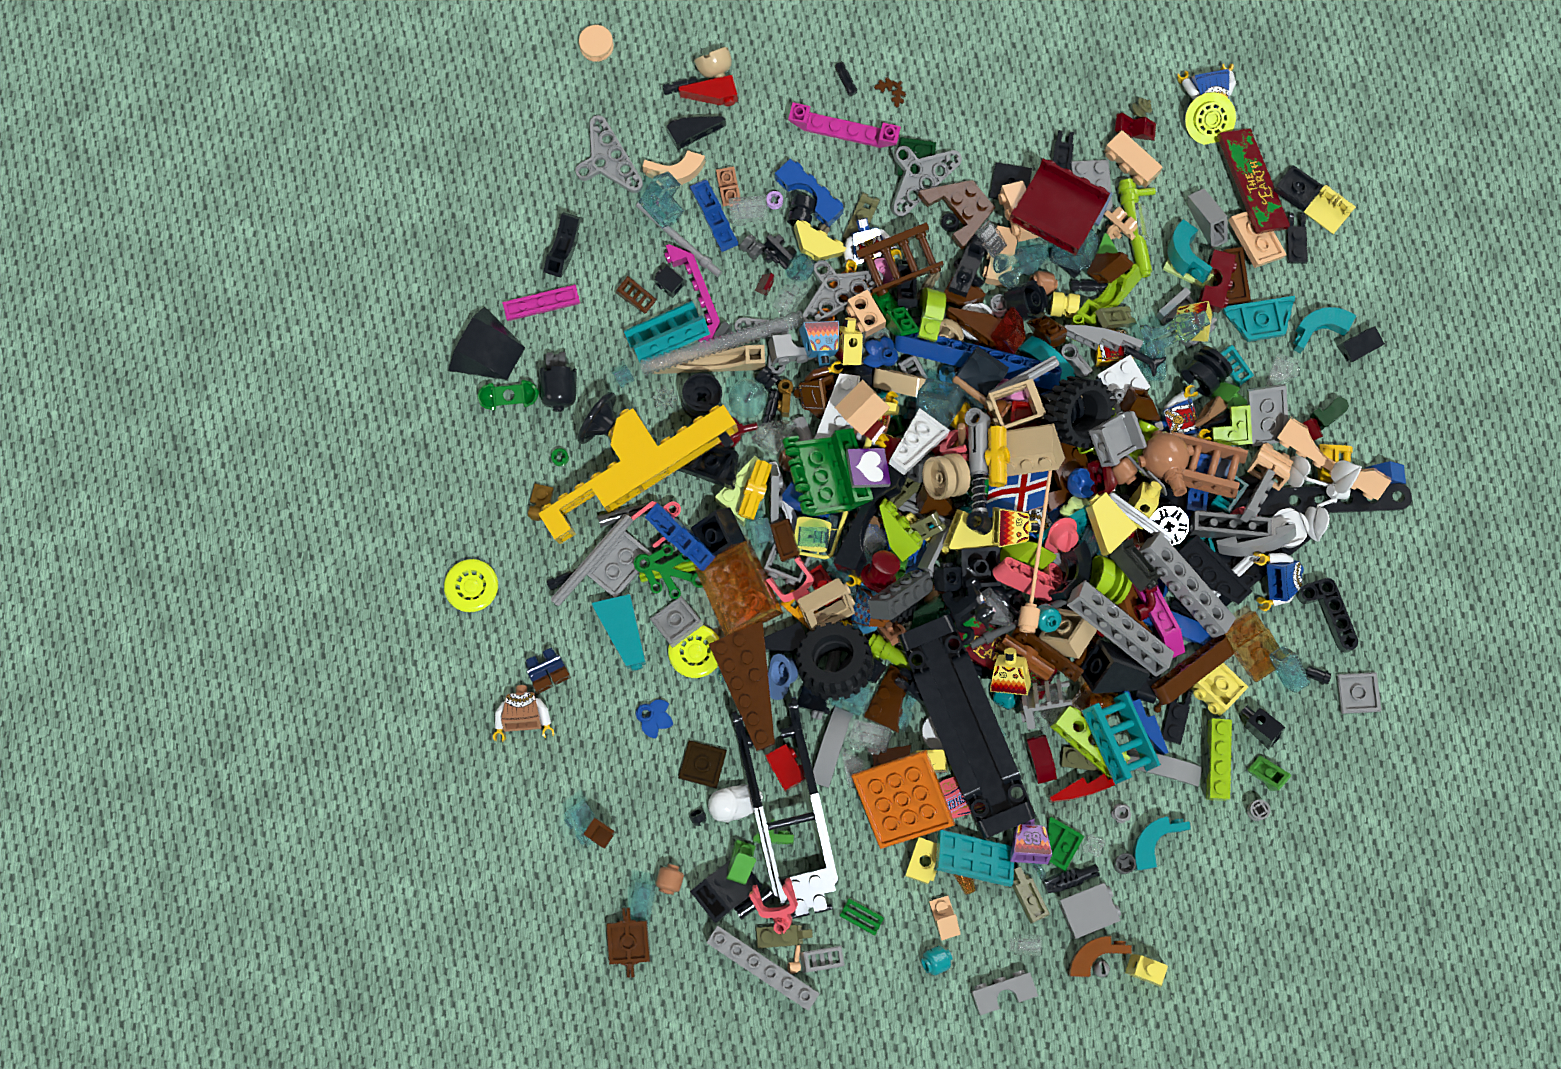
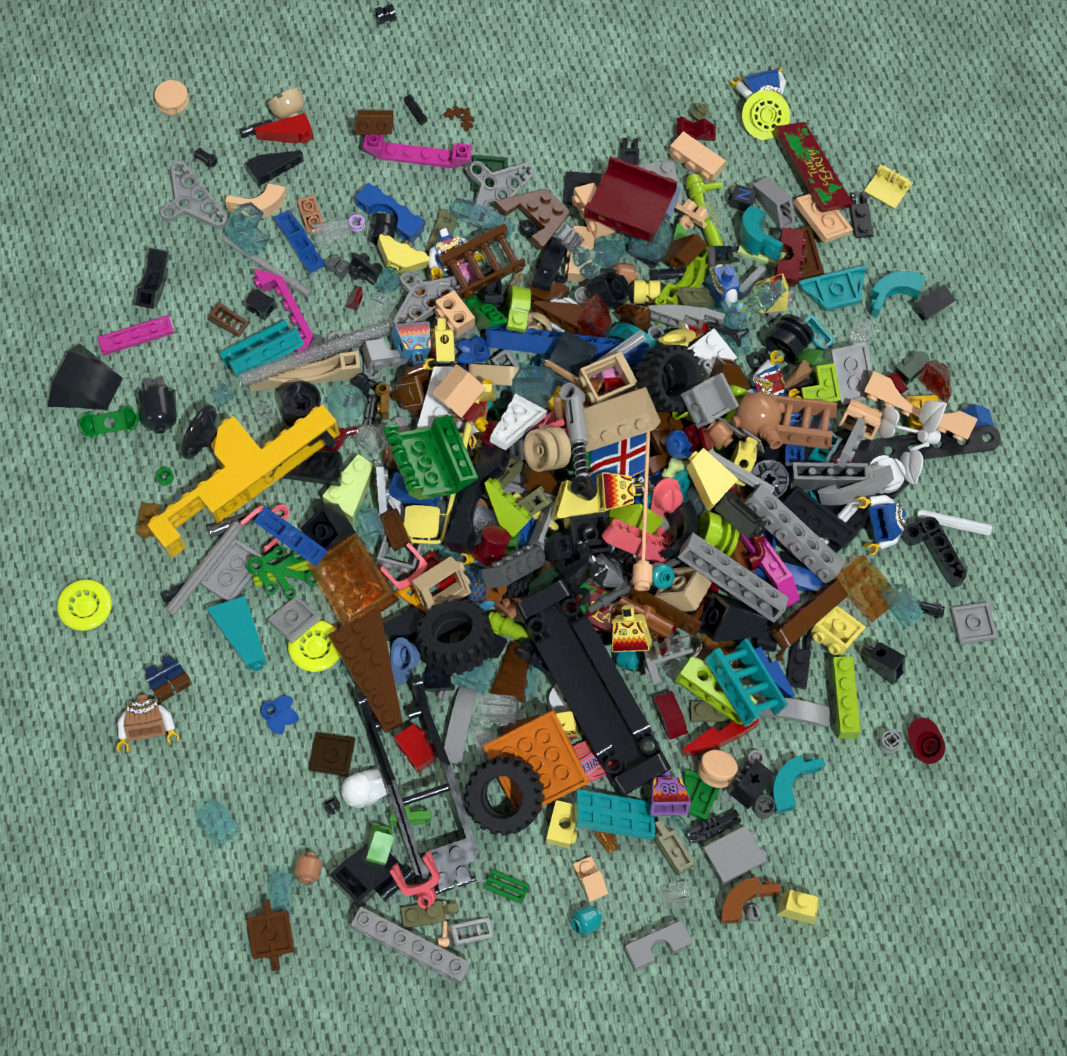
camera: 10 degrees left, 10 degrees down
(599, 833) = (232, 826): reddish brown panel -> none
(630, 116) = (209, 159): none -> black pin
(754, 489) = (360, 483): yellow piece -> none
(802, 91) = (374, 121): none -> reddish brown panel
(813, 537) = (423, 522): clear light blue slope -> none
(854, 848) = (482, 809): none -> black tyre
(868, 468) = (470, 449): tile -> none
(902, 207) = (479, 215): none -> clear light blue arch
(997, 456) = (595, 424): yellow piece -> none
(1082, 820) = (717, 768): none -> light nougat head
(1091, 364) = (678, 337): none -> light yellow piece
(1114, 840) = (751, 784): none -> black brick
(1145, 305) = (723, 284): none -> blue torso
(1148, 273) = (722, 255): none -> black hinge
(1164, 389) = (754, 356): none -> black bush
(1175, 209) = (742, 197): none -> black brick
(1269, 773) = (896, 705): bright green slope -> none
(1295, 814) = (926, 737): none -> dark red piece
(1298, 188) = (856, 170): black plate -> none
(1353, 584) = (956, 522): none -> white axle
(1354, 429) = (937, 379): none -> clear red slope

